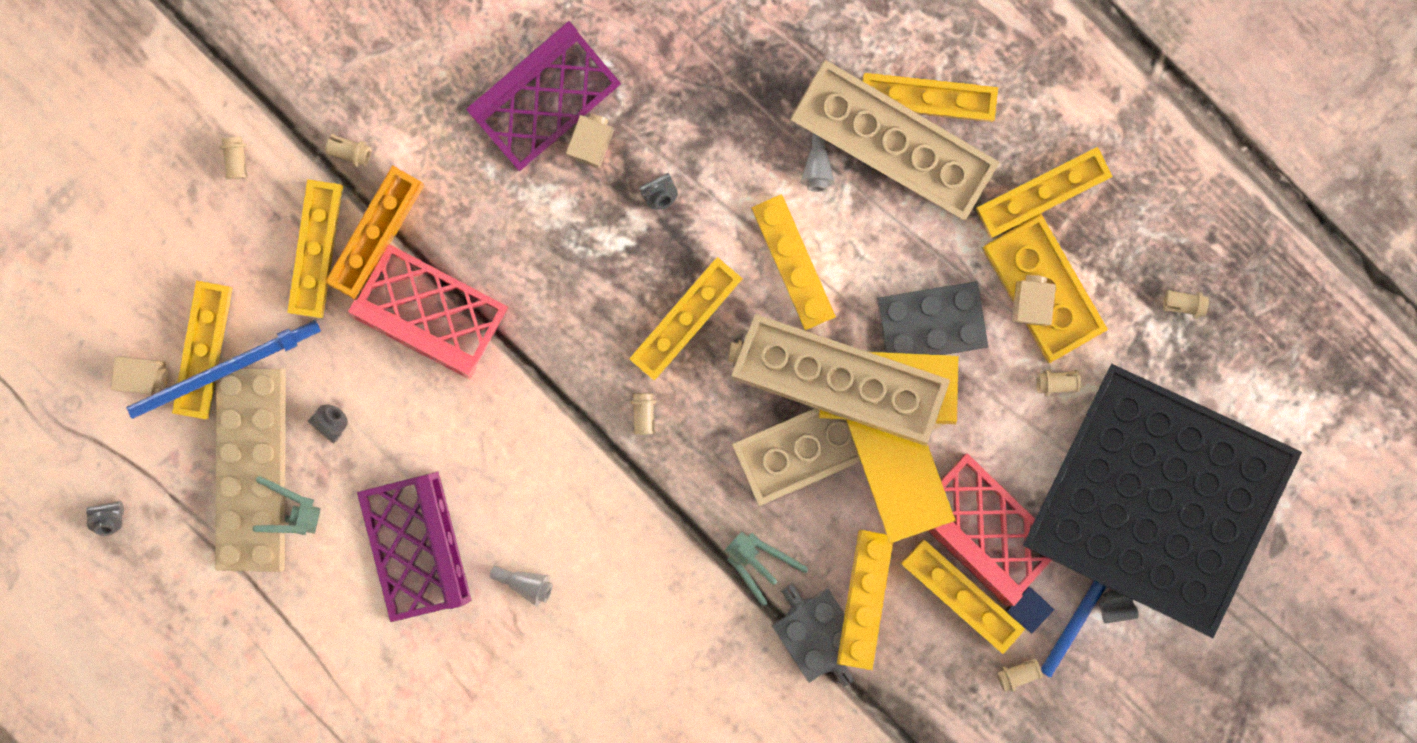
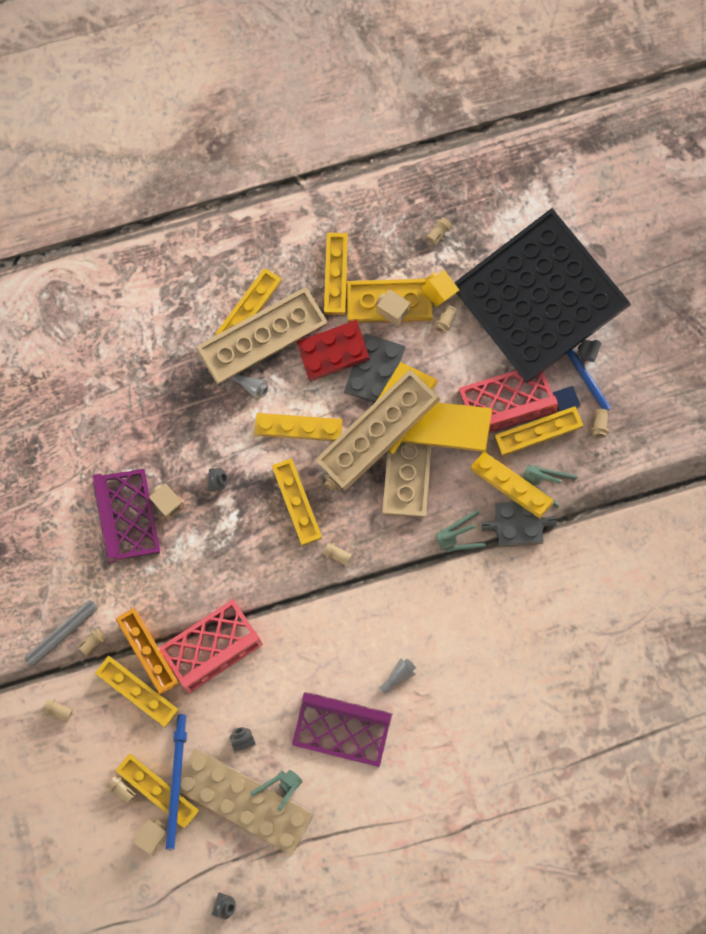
camera: 55 degrees left, 15 degrees down
(178, 302) = (121, 789): none -> tan pin
(338, 102) = (61, 633): none -> light grey axle
(895, 622) = (535, 474): none -> sand green plant
(927, 251) = (333, 350): none -> red plate
(1098, 351) = (439, 287): none -> yellow brick

